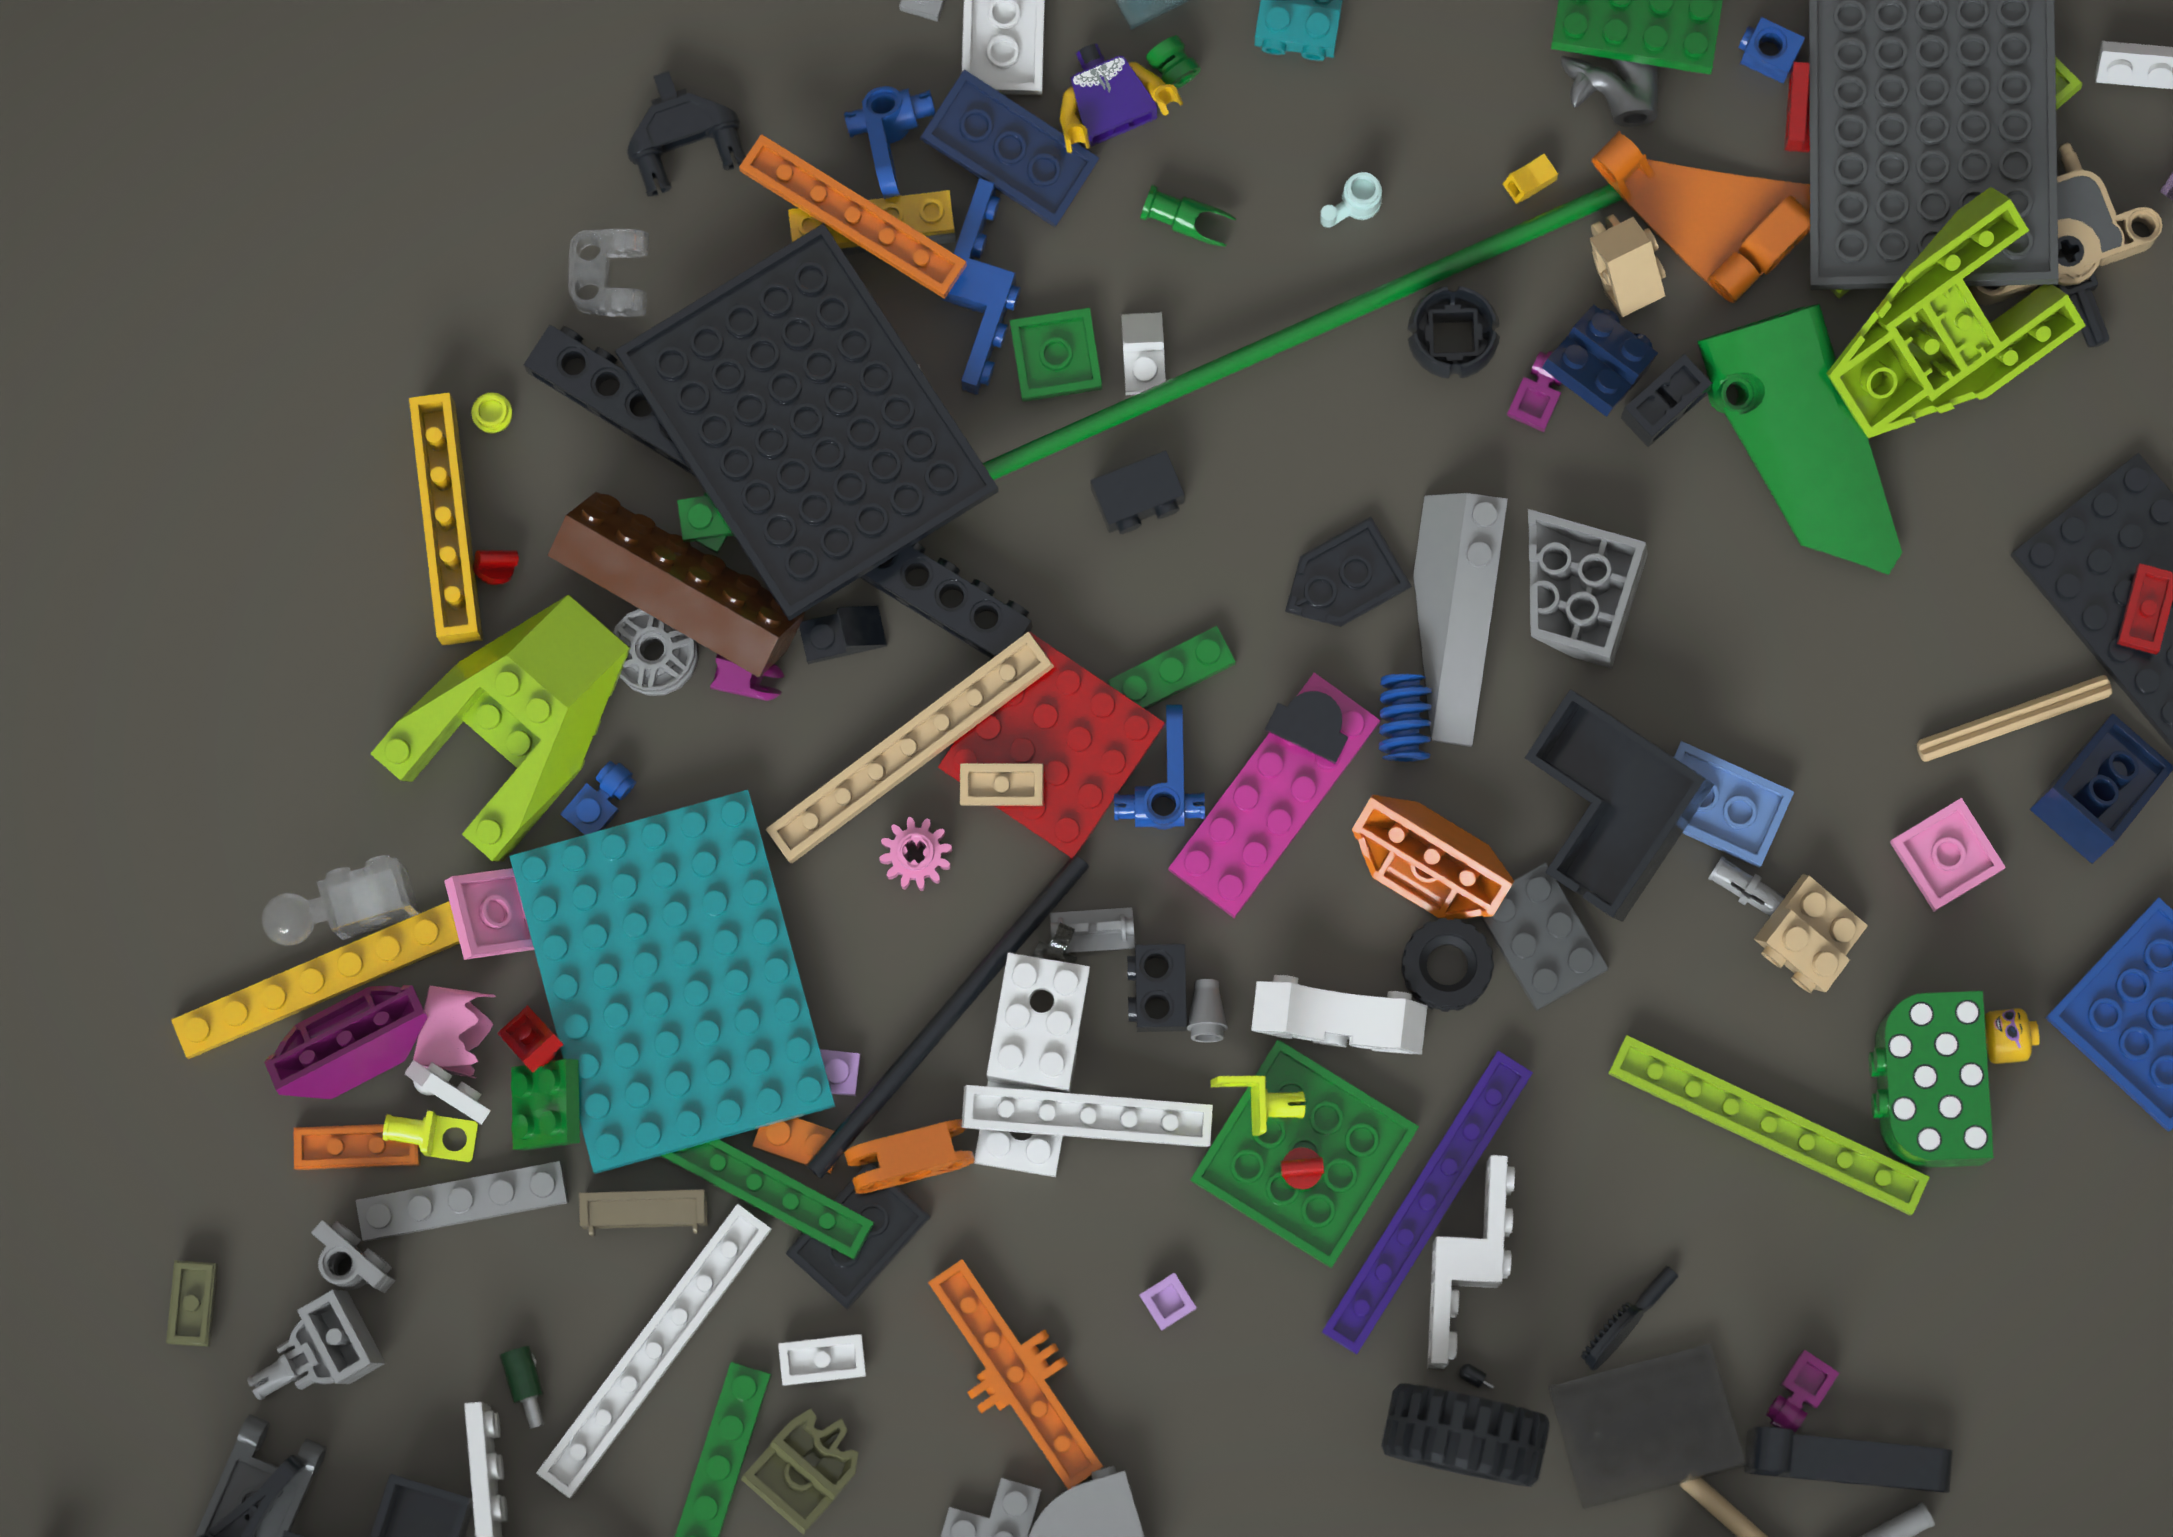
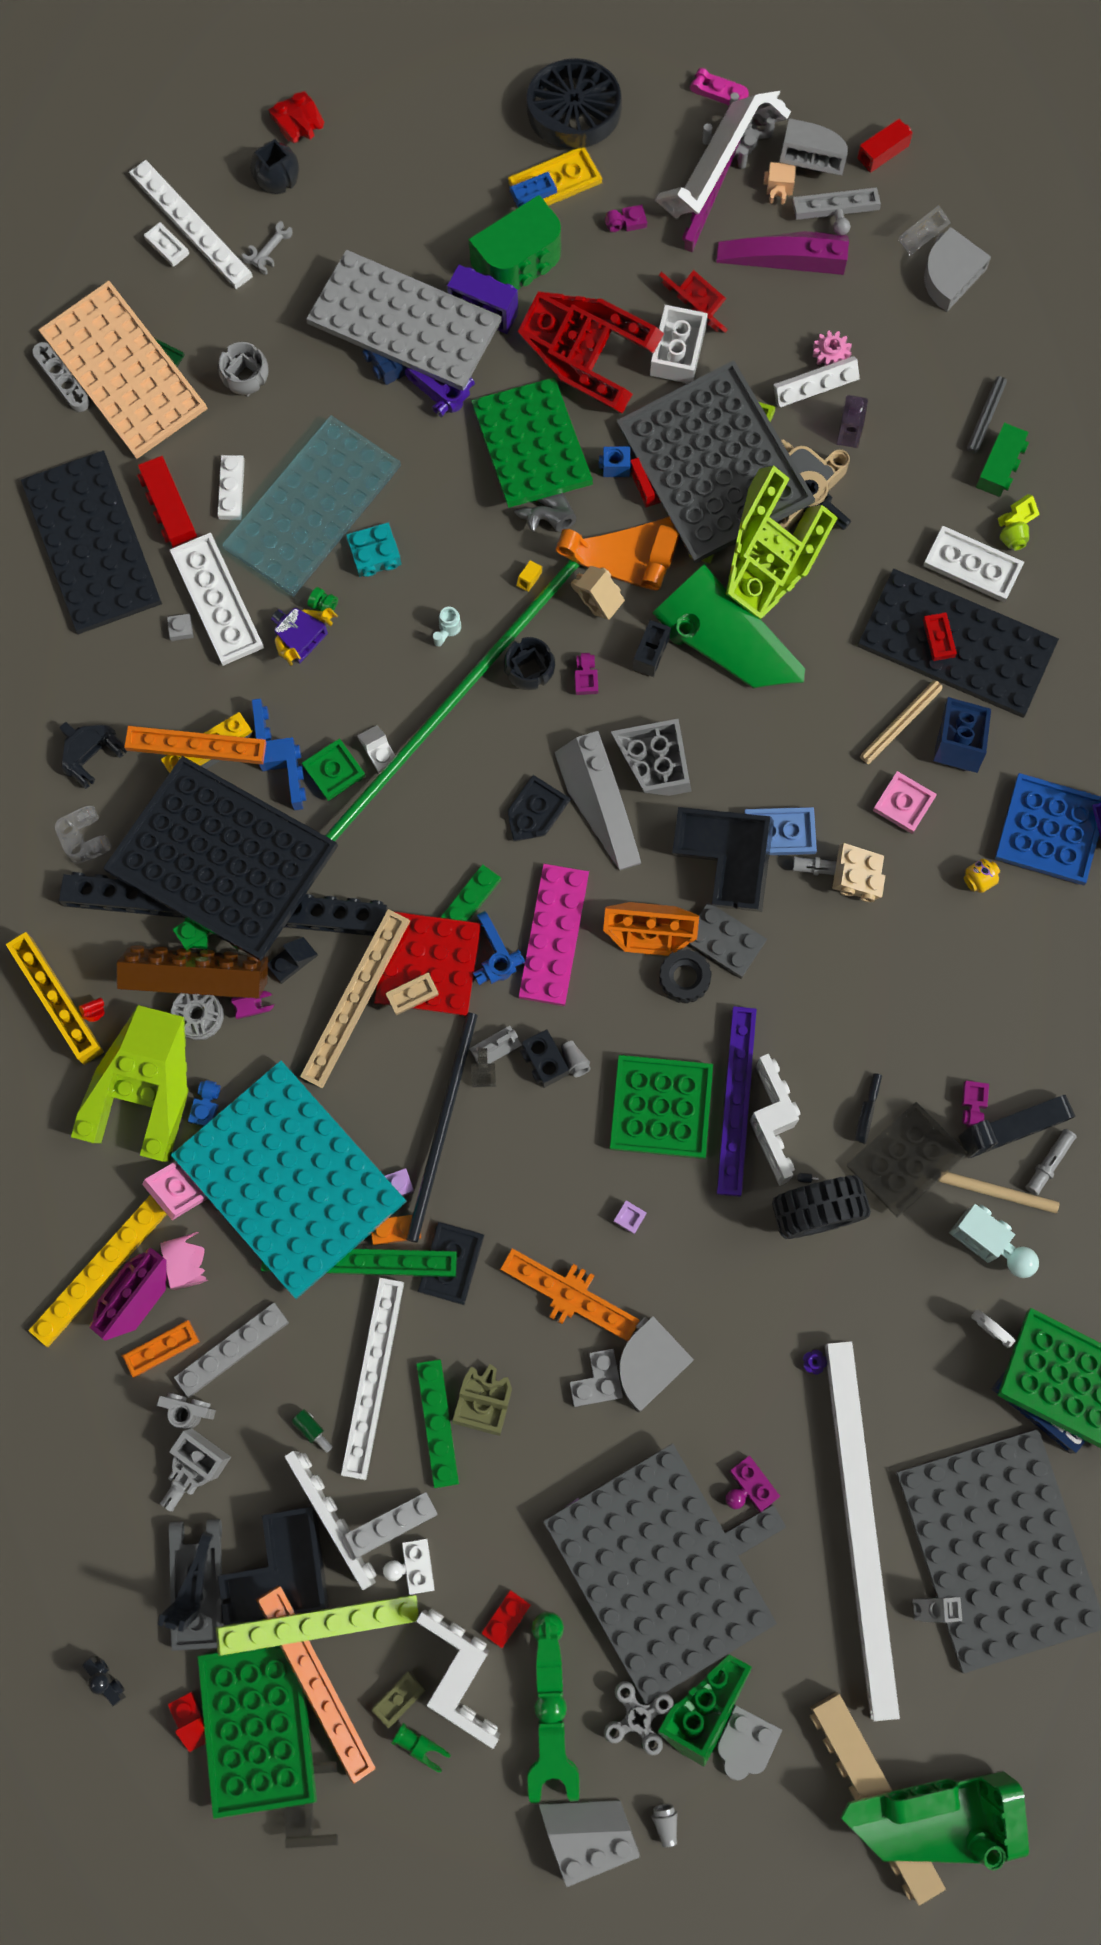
camera: 30 degrees left, 5 degrees down
(192, 1303) = (110, 1477): olive plate -> none
(349, 901) = (96, 1219): clear brick -> none
(429, 1134) = (197, 1322): neon yellow bracket -> none
(435, 1081) = (186, 1292): white plate -> none
(492, 413) = (54, 934): neon yellow plate -> none
(530, 1039) = (228, 1245): red plate -> none
(545, 1105) = (252, 1275): green plate -> none
(643, 1209) = (331, 1305): dark tan container -> none
(822, 1359) = (464, 1338): white plate -> none
(887, 119) = (190, 692): blue piece -> none
(899, 853) = (387, 1060): bright pink gear -> none
(908, 1156) = (458, 1208): orange piece -> none
(1009, 148) = (259, 677): dark blue plate -> none
(1033, 1053) = (499, 1129): white bracket -> none
(1086, 1116) = (540, 1141): white plate -> none
(1138, 493) = (409, 817): black brick -> none
(1179, 213) = (363, 672): green piece -> none
(1264, 1104) = (628, 1090): neon yellow bracket -> none
(1302, 1168) = (665, 1113): red plate -> none
(1310, 723) = (555, 888): black piece -> none
(1333, 1017) = (642, 1029): white brick -> none
(1403, 717) = (600, 864): blue piece -> none
(1601, 359) = (609, 644): dark blue plate -> none
(1769, 1125) = (887, 977): lime plate -> none
(1934, 1081) = (959, 914): green brick -> none

